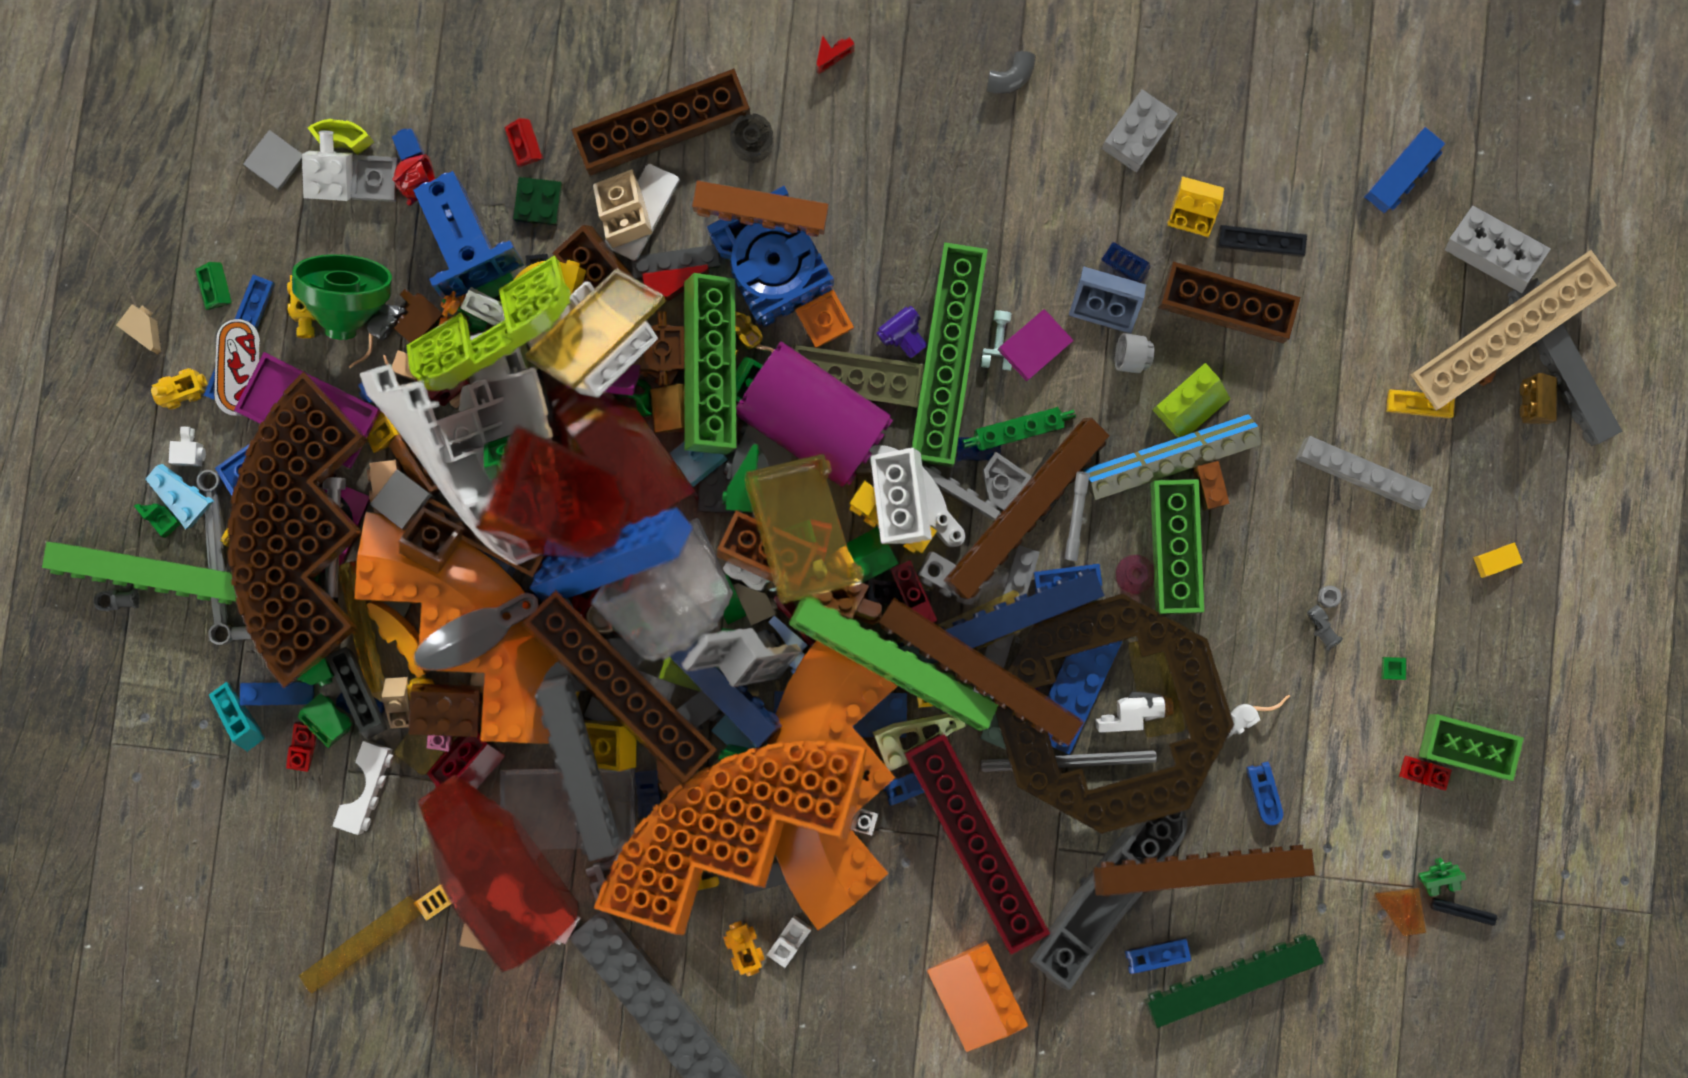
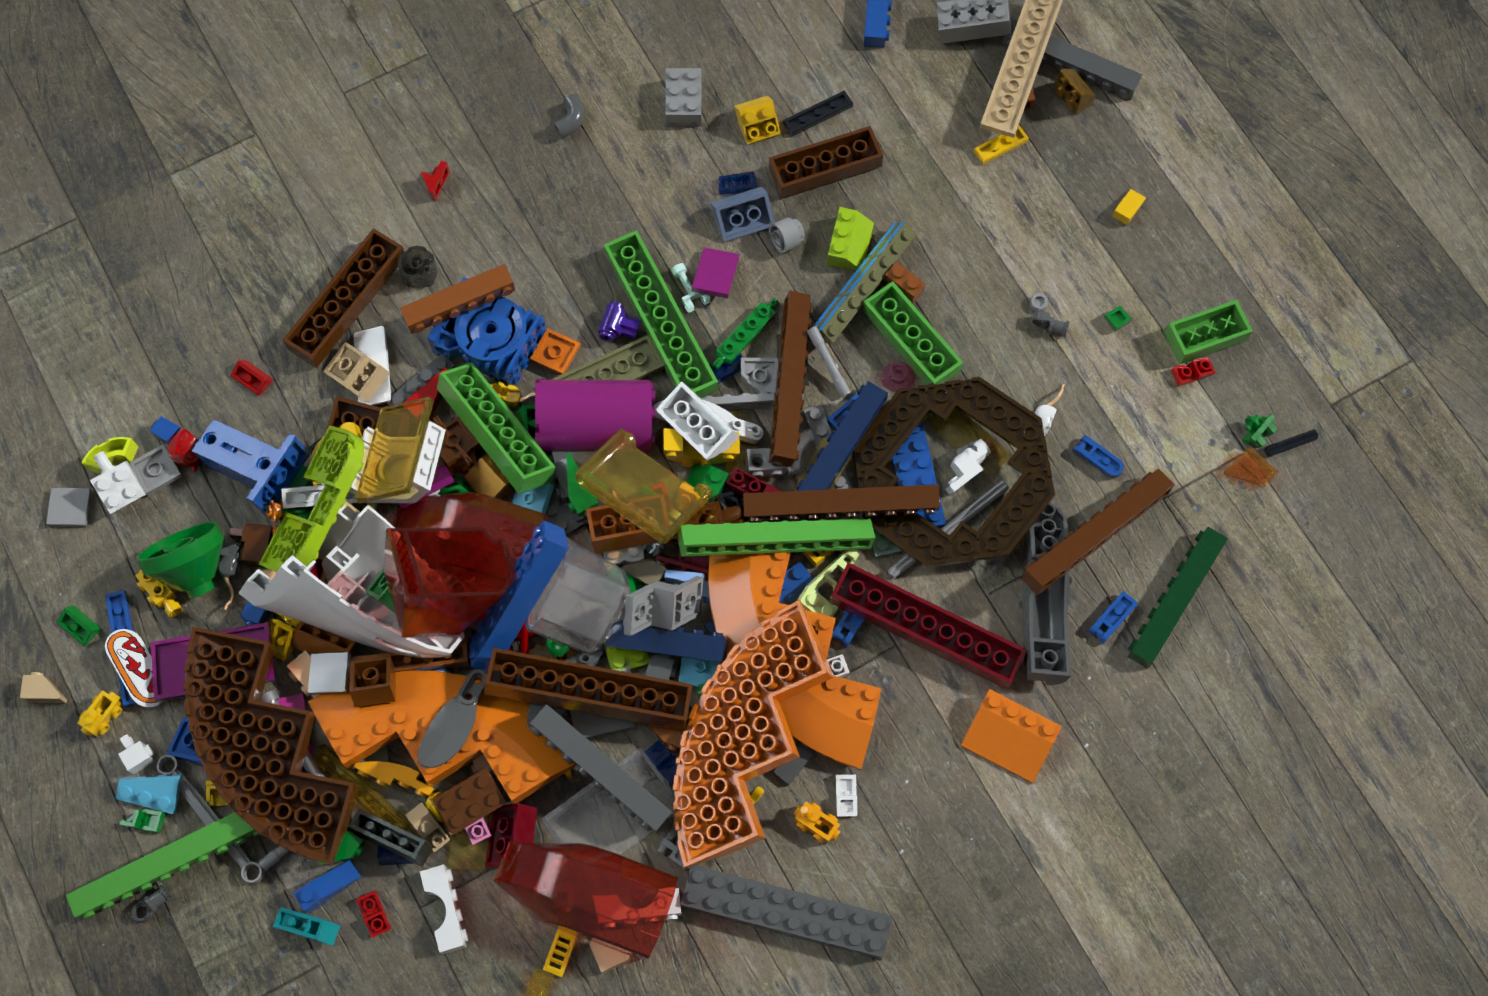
camera: 35 degrees left, 15 degrees down
(325, 720) = (378, 878): green brick -> none
(537, 201) = (289, 408): dark green plate -> none
(612, 745) = (613, 740): yellow slope -> none
(1364, 473) = (998, 209): light grey brick -> none

